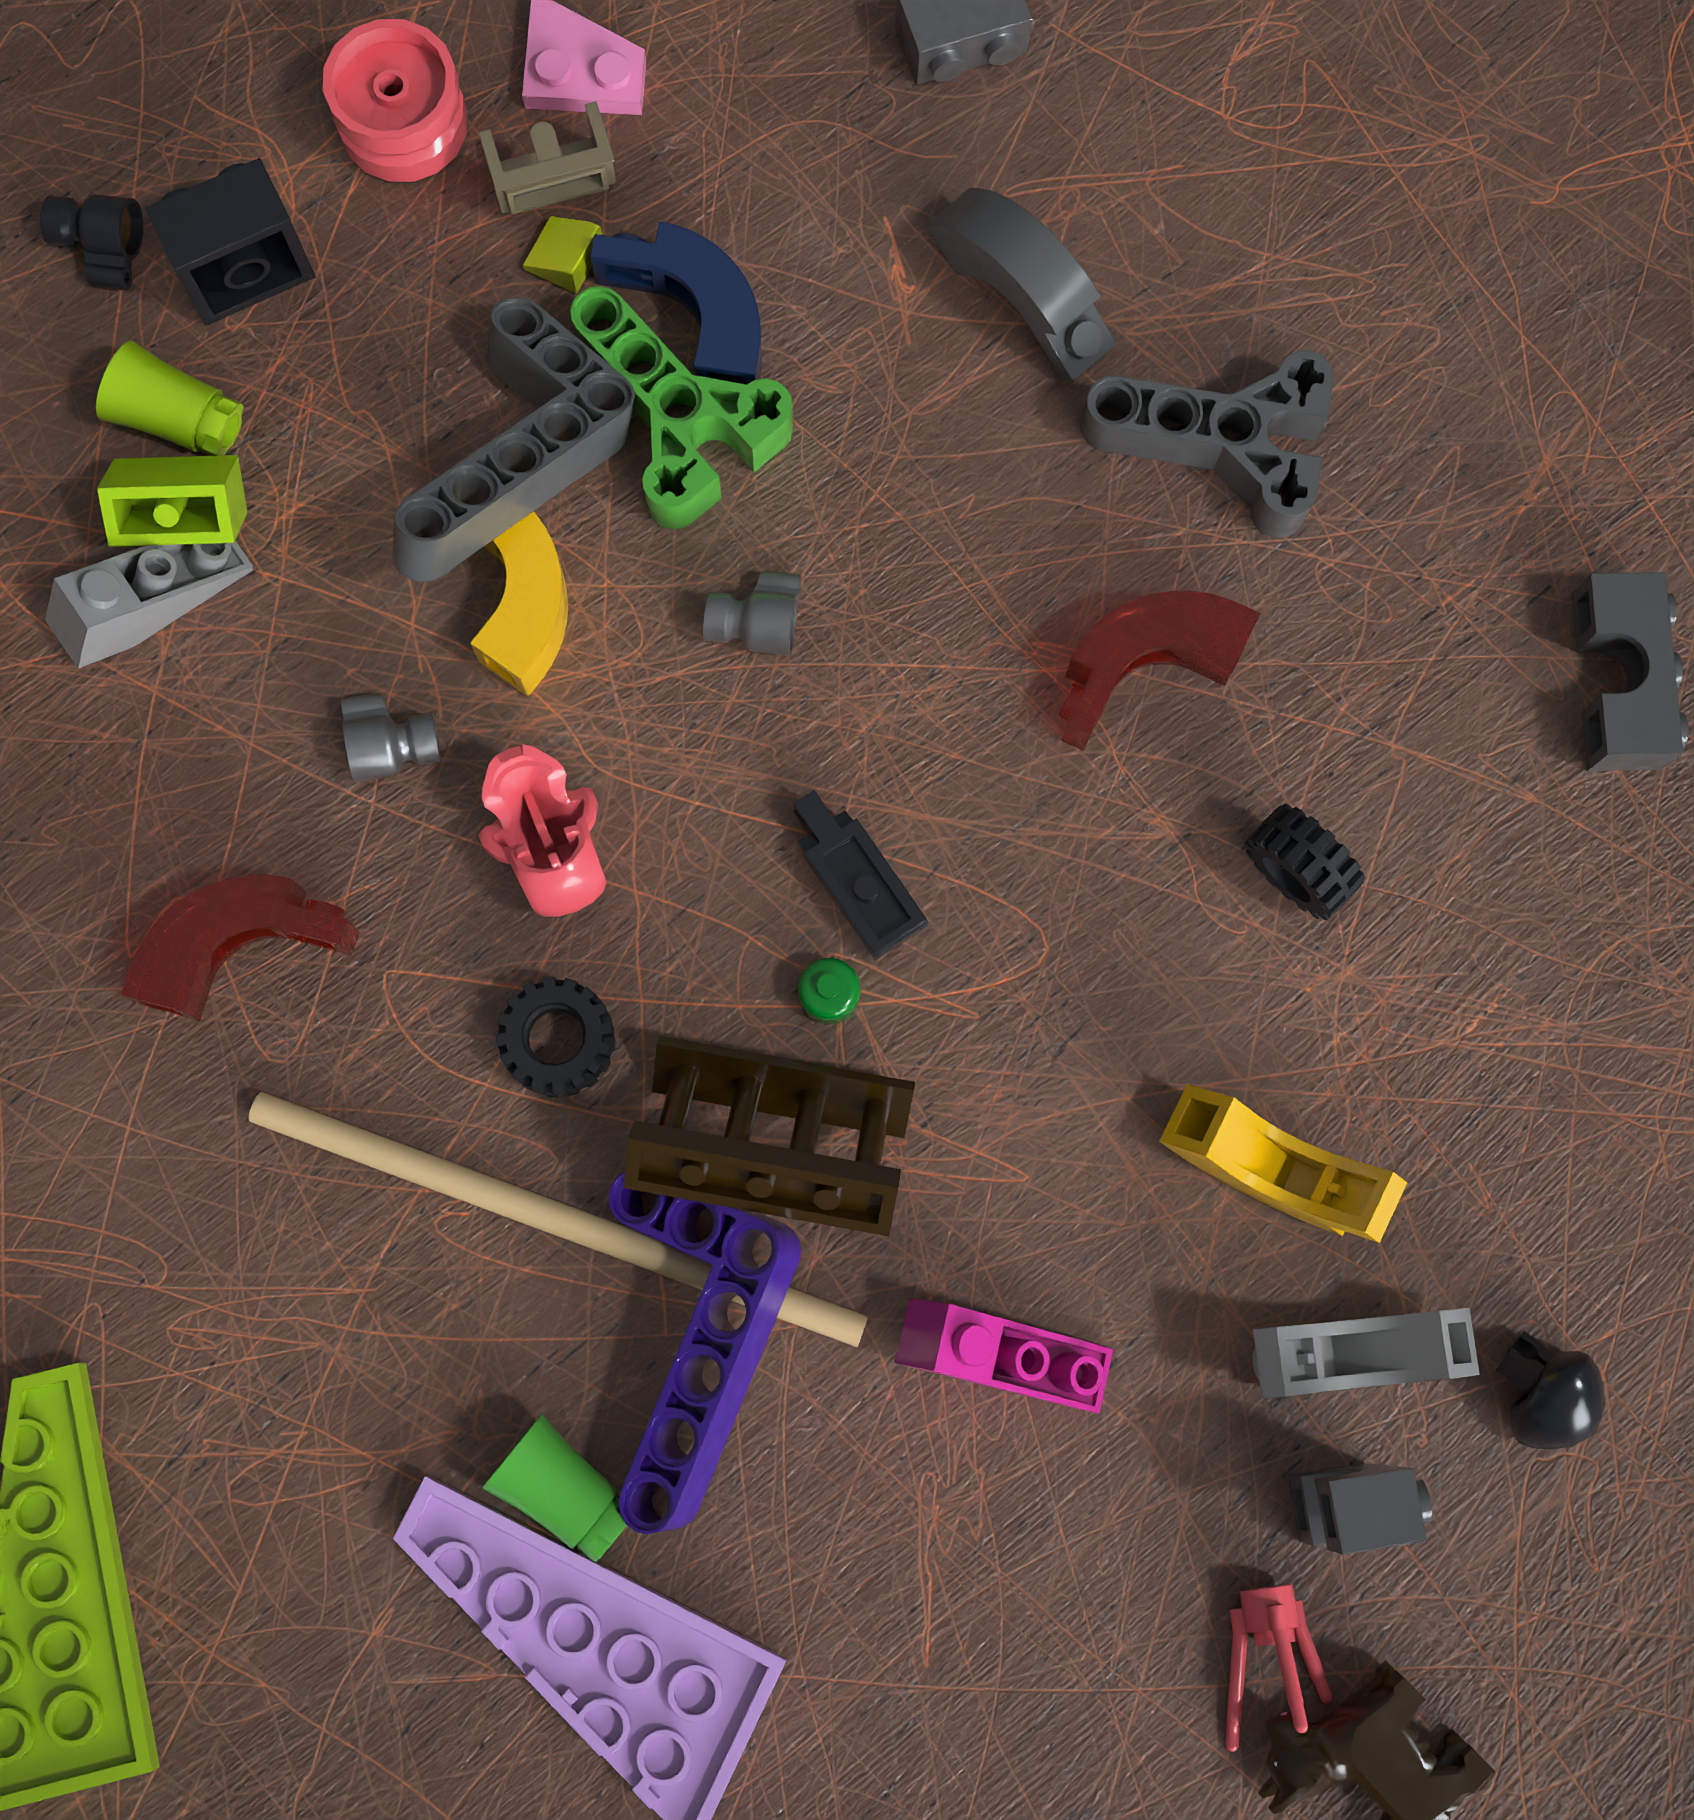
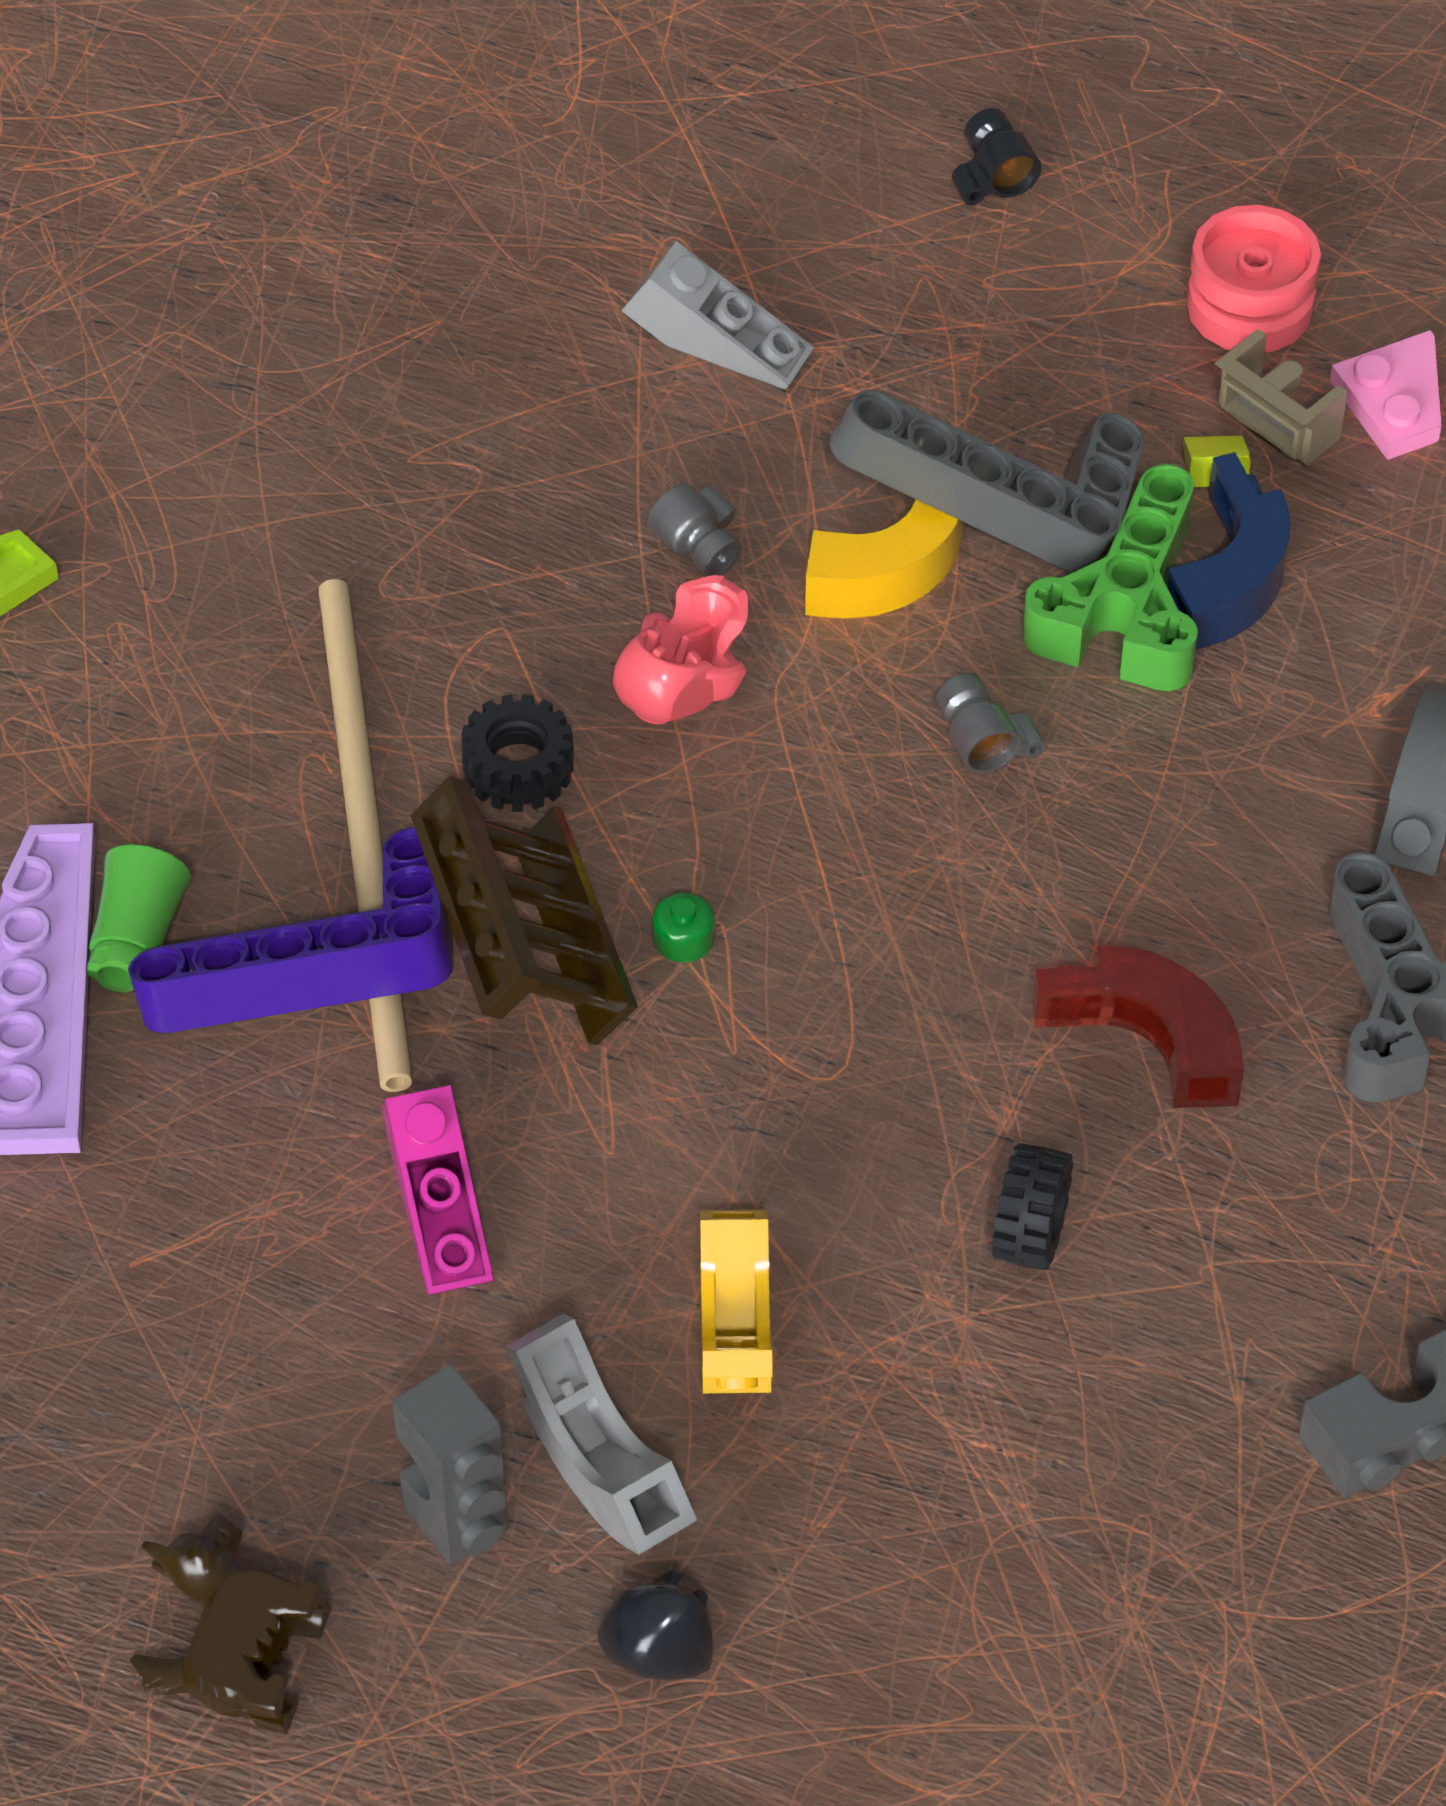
camera: 65 degrees right, 25 degrees down
(166, 402) = (882, 258): lime plant -> none
(172, 500) = (801, 298): lime brick -> none
(205, 928) = (459, 486): clear red arch -> none
(230, 241) = (1044, 229): black brick -> none
(857, 877) = (796, 899): black hinge -> none
(1274, 1620) = (313, 1494): coral plant -> none

